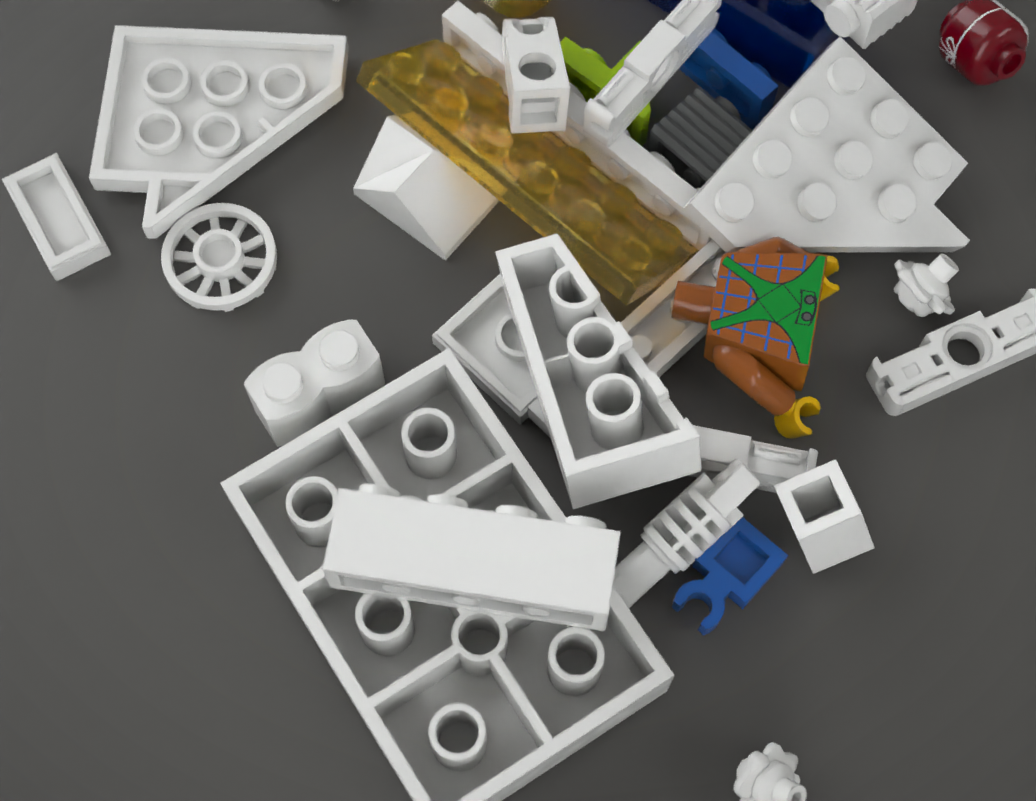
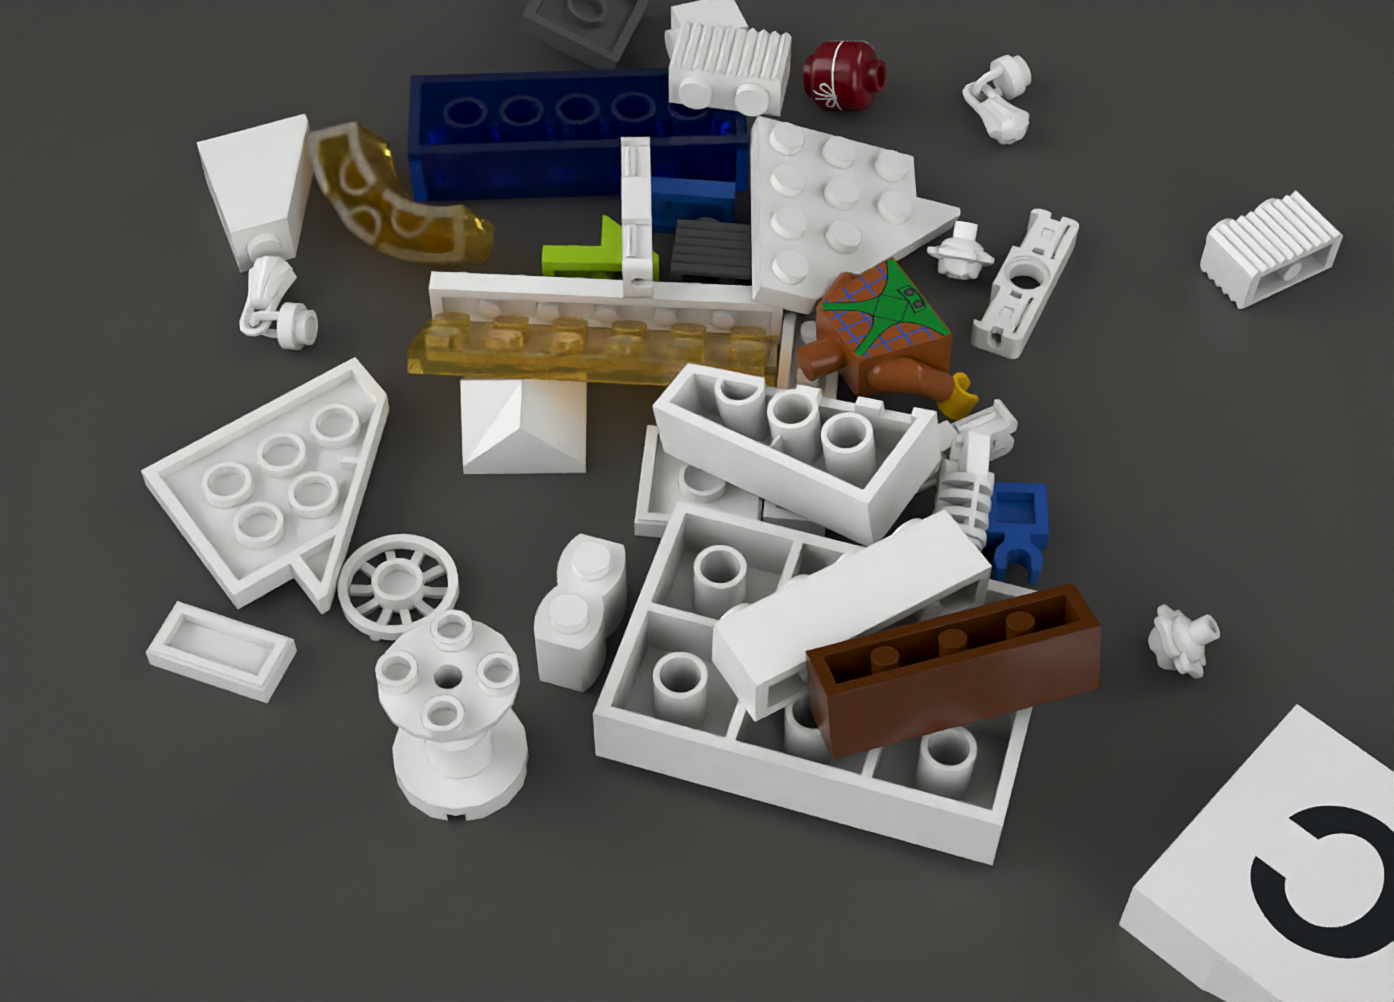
camera: 40 degrees left, 15 degrees down
(124, 403) = (453, 700): none -> white piece
(495, 678) = (953, 670): none -> reddish brown brick
(535, 75) = (555, 274): white leg -> none
(824, 516) = (1047, 437): white brick -> none

